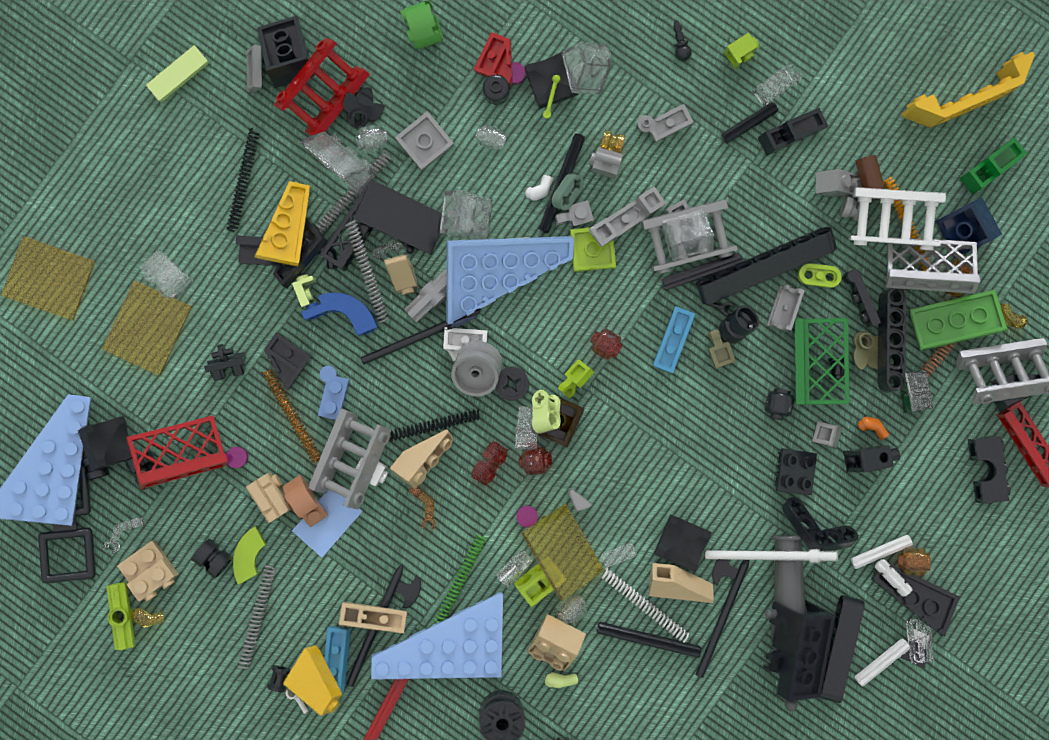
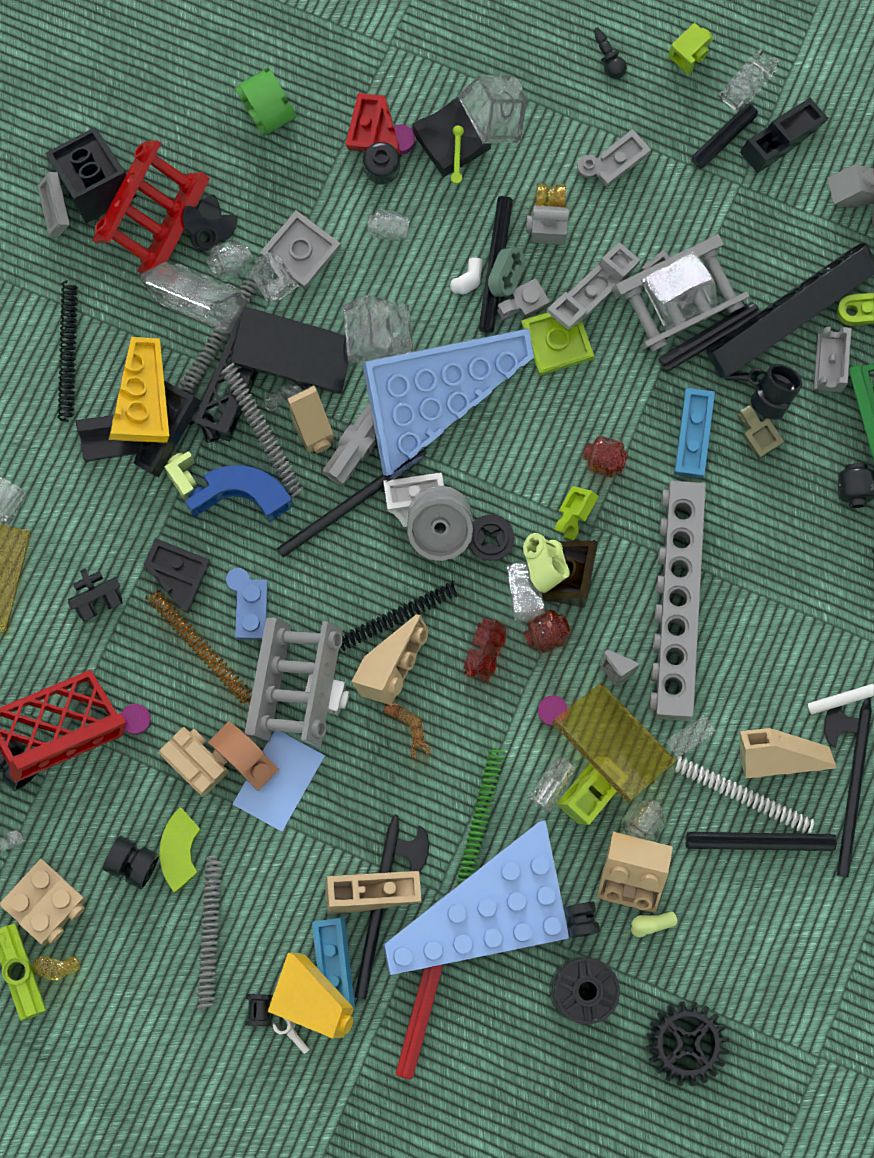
camera: 15 degrees left, 10 degrees down
(399, 159) = (263, 276): none -> clear brick
(512, 667) = (582, 919): none -> black wheel
(617, 533) = (692, 499): none -> light grey brick
(682, 543) = (774, 697): black brick -> none

